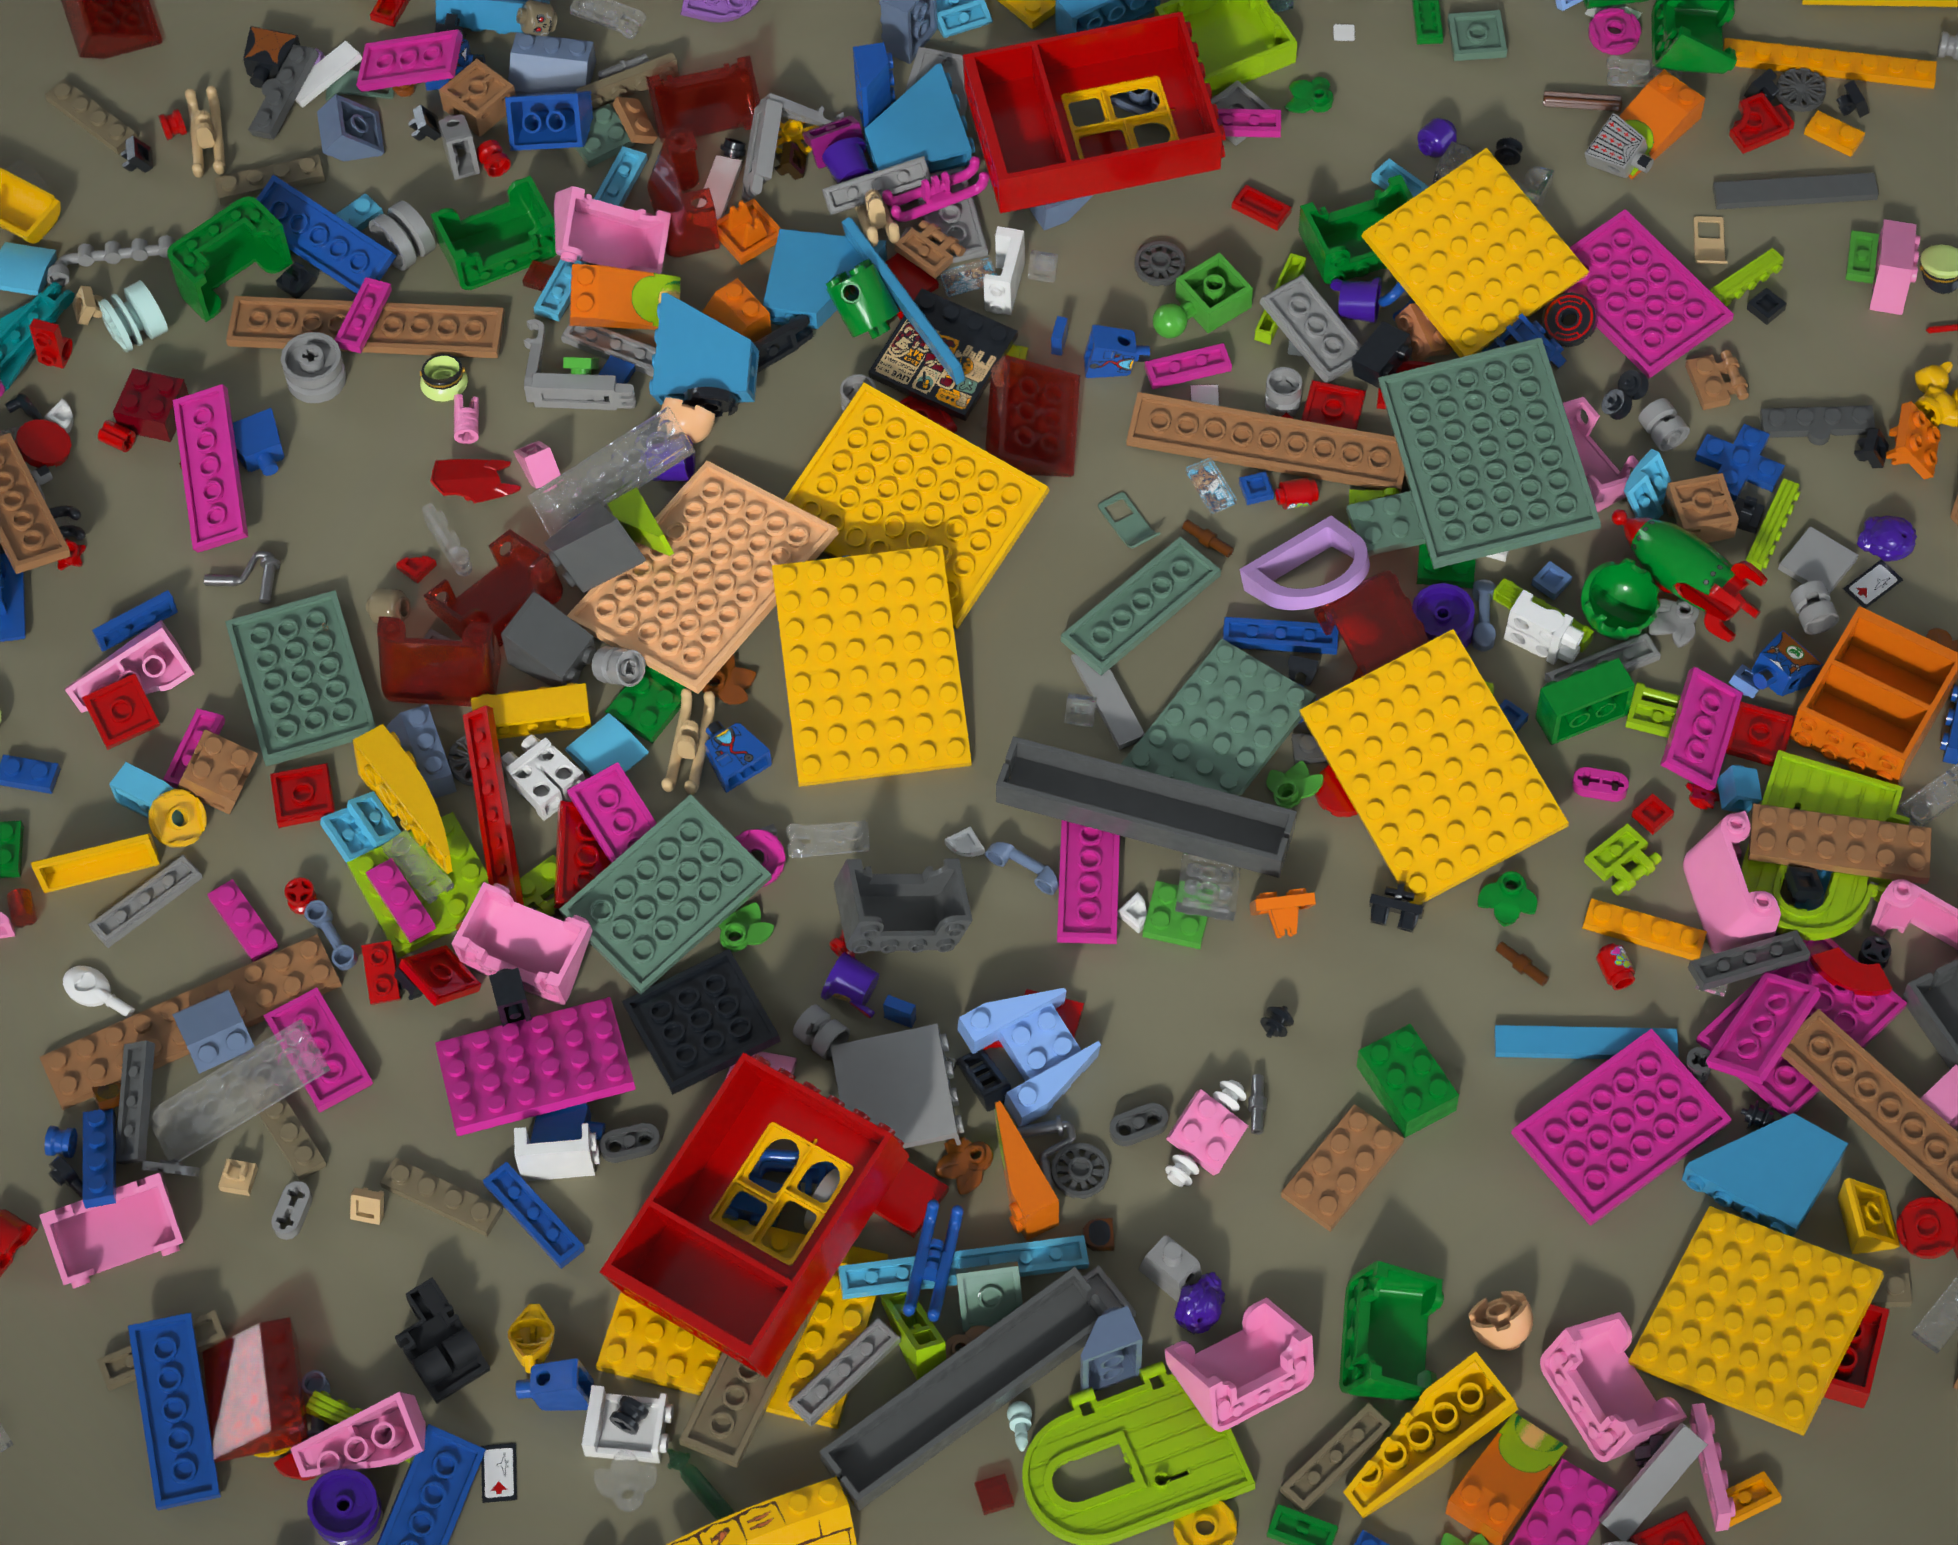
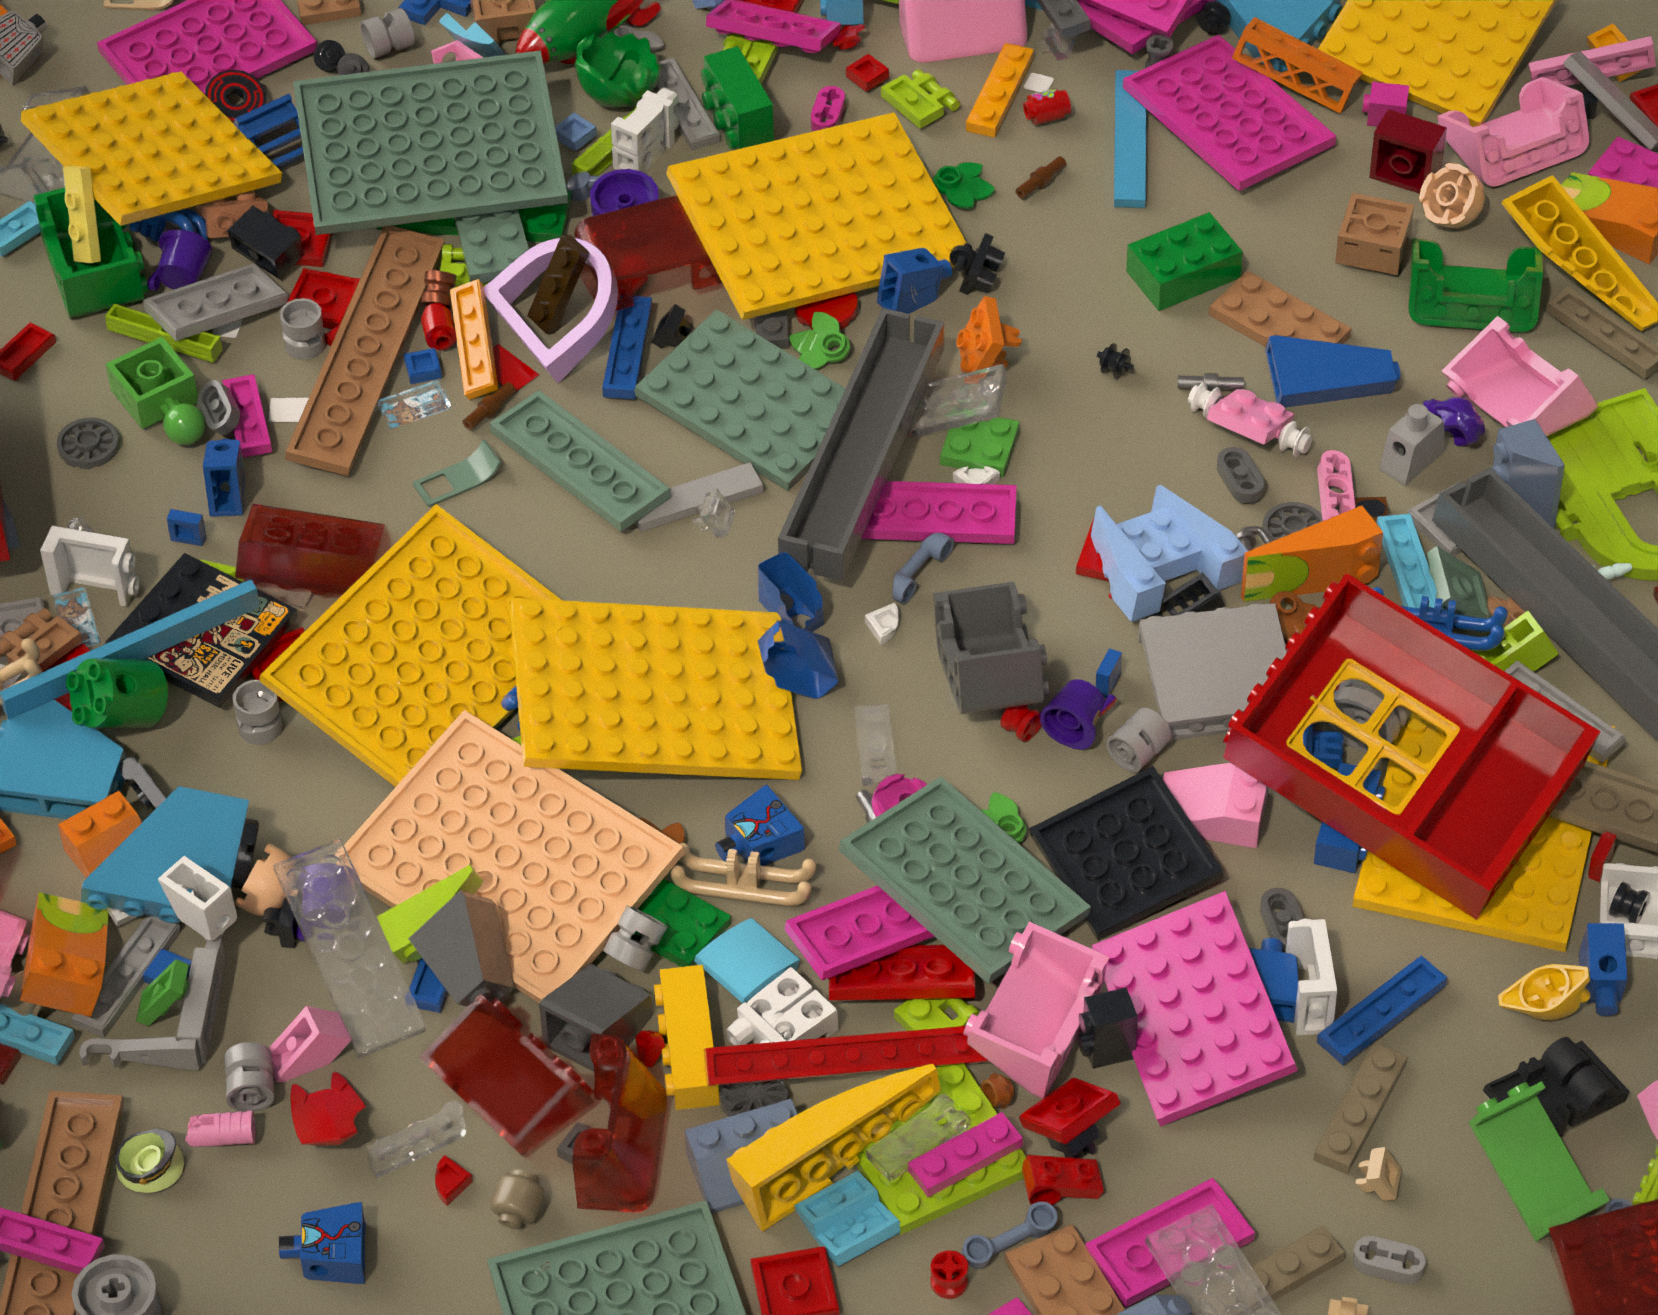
camera: 90 degrees left, 10 degrees down
(357, 494) = (330, 1244): none -> blue torso
(359, 1318) = (1533, 1161): none -> bright green panel
(517, 428) = (249, 1077): none -> light grey wheel
(523, 685) = (649, 1046): none -> red tile
(641, 364) = (209, 905): none -> white torso
(683, 1398) = (1602, 854): none -> red tile
(905, 770) = (804, 662): none -> blue piece
(979, 751) = (785, 576): none -> blue piece
(1144, 1194) = (1341, 479): none -> bright pink beam
(1193, 338) = (218, 407): none -> dark grey plate
(1258, 546) = (511, 368): none -> red sticker
(1262, 1195) = (1327, 371): none -> blue slope
(1278, 517) = (474, 339): none -> light orange tile
(1328, 565) = (558, 284): none -> dark brown plate
(1336, 487) = (438, 288): none -> copper wheel
(1364, 850) = (911, 280): none -> blue torso
(1391, 204) = (82, 214): none -> light yellow plate
(1449, 1245) = (1374, 233): none -> medium nougat piece
(1562, 1280) = (1406, 150): none -> dark red brick
(1643, 1272) = (1384, 97): none -> dark pink brick
(1661, 965) = (1038, 82): none -> white sticker
(1684, 1183) = (1298, 54): none -> orange fence

